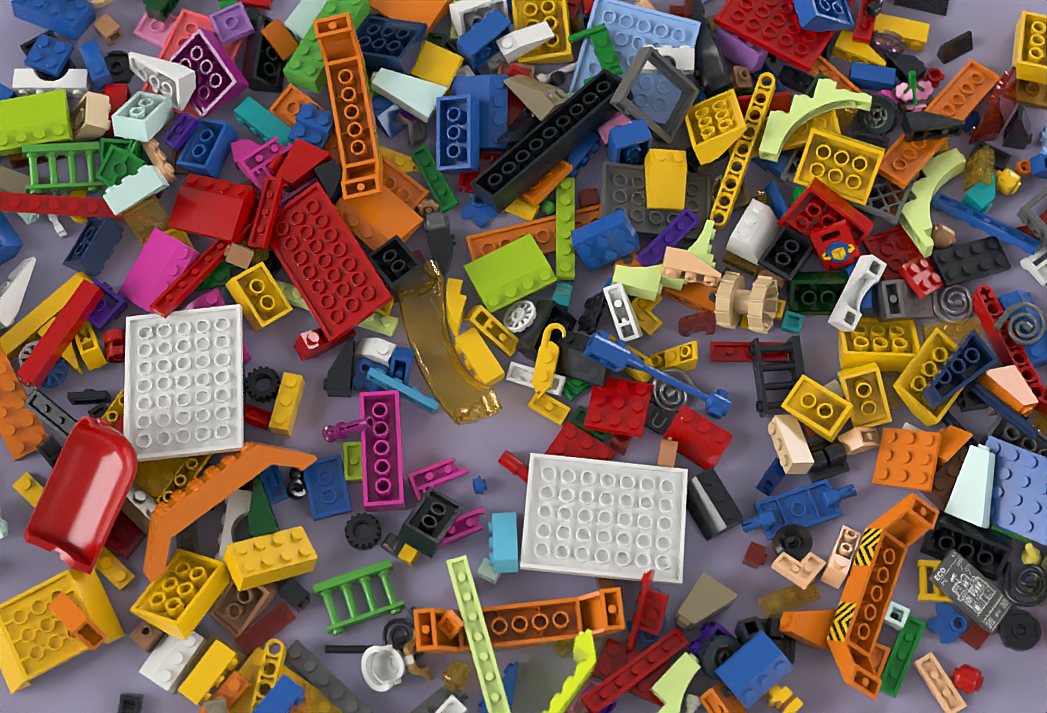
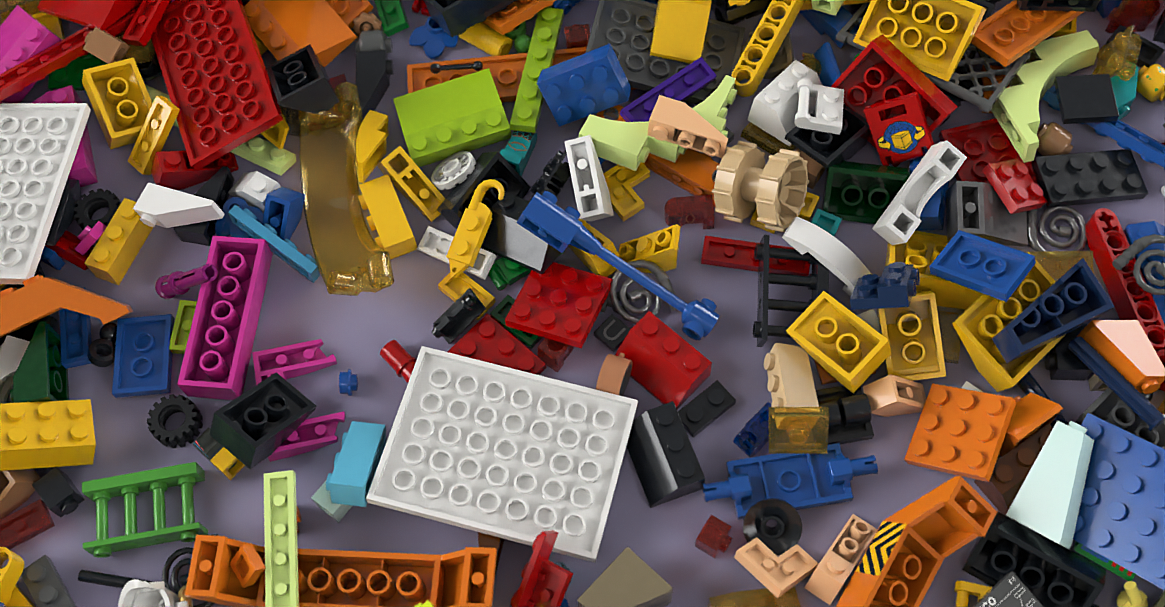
camera: 15 degrees right, 5 degrees down
(265, 405) = (89, 237): none -> dark pink plate
(291, 319) = (153, 134): none -> yellow plate
(325, 375) = (174, 208): none -> white slope
(519, 231) = (436, 68): none -> black hinge
(548, 426) = (458, 317): none -> black hinge
(733, 466) = (706, 408): none -> black plate
(783, 236) = (827, 107): none -> white plate
(800, 475) = (798, 430): none -> clear yellow plate
(804, 346) = (827, 250): none -> white slope
(845, 369) = (890, 290): none -> dark blue plate
(907, 341) = (982, 265): none -> blue plate
(961, 203) = (1086, 99): none -> black tile

